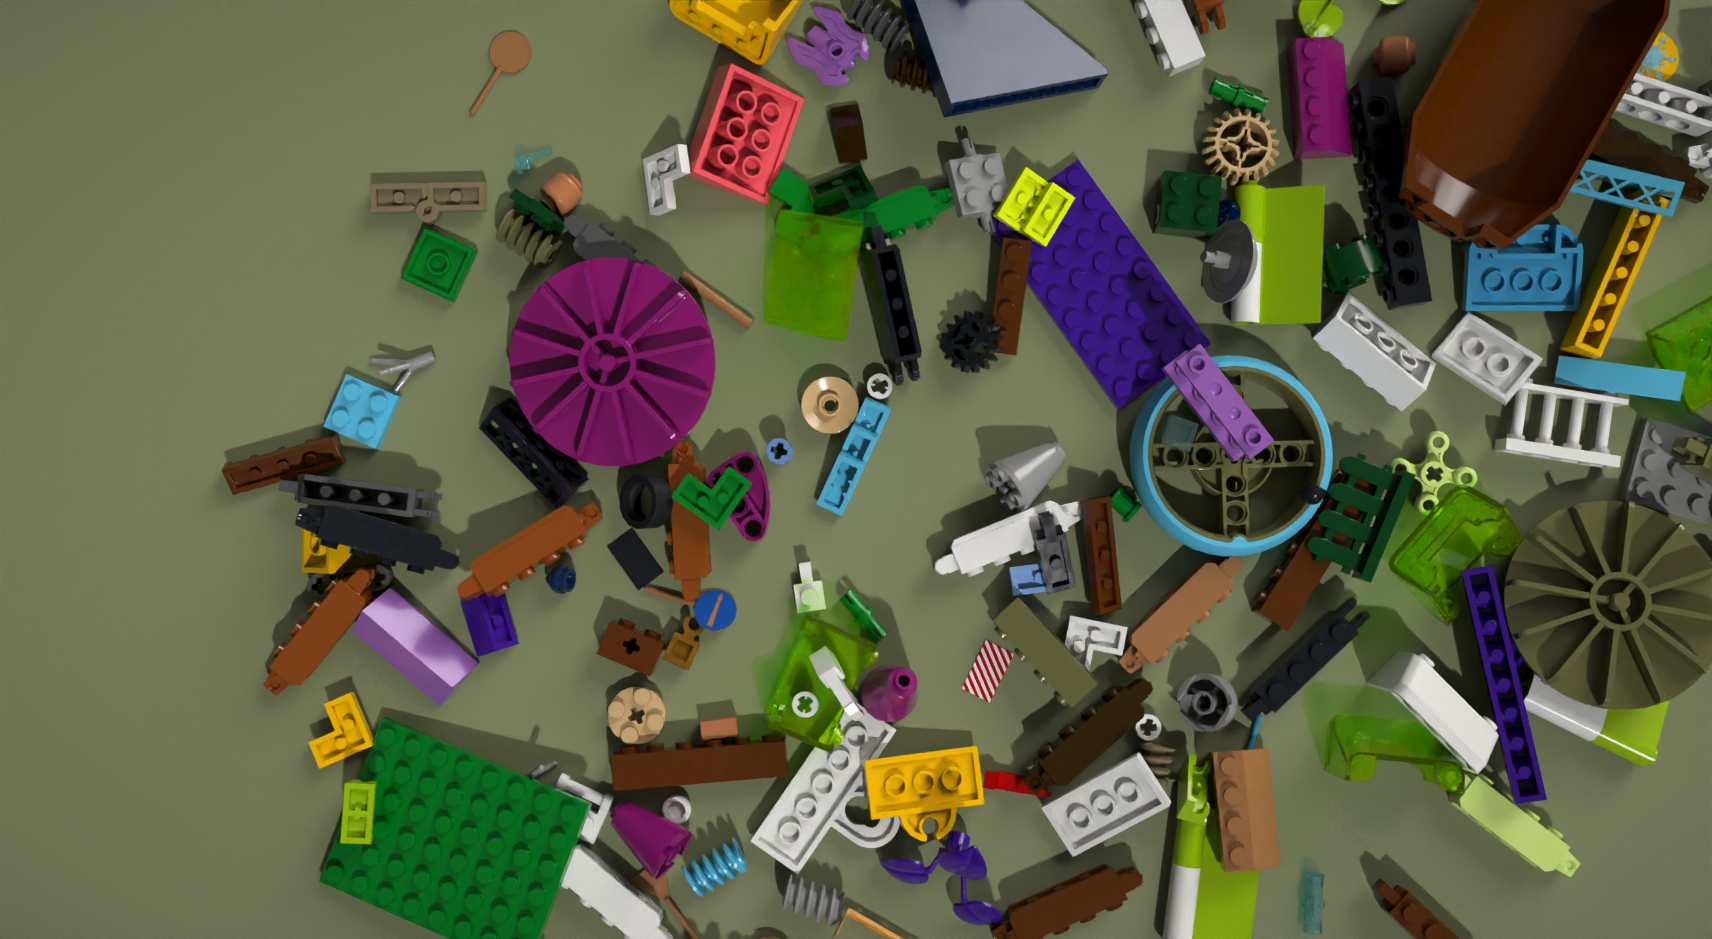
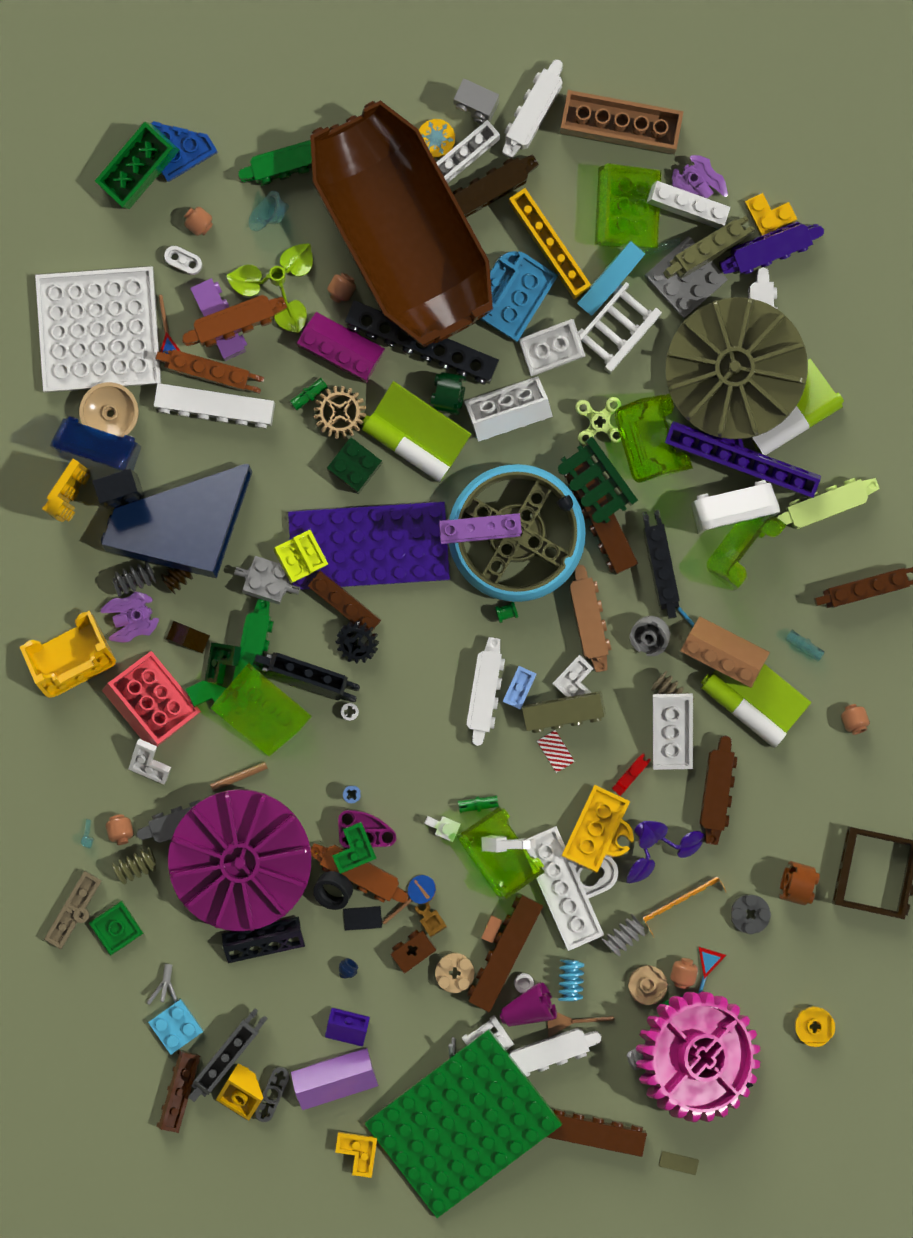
camera: 55 degrees left, 0 degrees up
(321, 631) = (292, 1127): dark orange hinge -> none
(358, 812) = (411, 1166): lime hinge -> none
(378, 537) = (258, 1058): black hinge -> none
(509, 54) = (15, 809): medium nougat piece -> none
(529, 549) = (319, 976): dark orange hinge -> none
(540, 214) = (128, 849): dark green plate -> none
(796, 703) = (512, 865): white bush -> none
(826, 390) = (333, 753): tan dish -> none
(854, 456) = (381, 752): medium azure slope -> none
(889, 692) = (532, 816): magenta cone -> none
(1024, 475) = (454, 659): light grey cone -> none
(1054, 555) = (510, 672): black hinge -> none
(1089, 736) = (628, 715): dark brown hinge -> none
(1101, 554) = (528, 643): reddish brown plate -> none
(1152, 734) = (651, 678): white bush -> none
(1179, 433) = (484, 557): clear light blue tile -> none
(1193, 791) = (696, 675): lime hinge -> none
(1228, 211) = (374, 445): tile -> none
(1229, 261) = (403, 464): light grey piece -> none
(1629, 178) = (482, 216): medium azure fence -> none

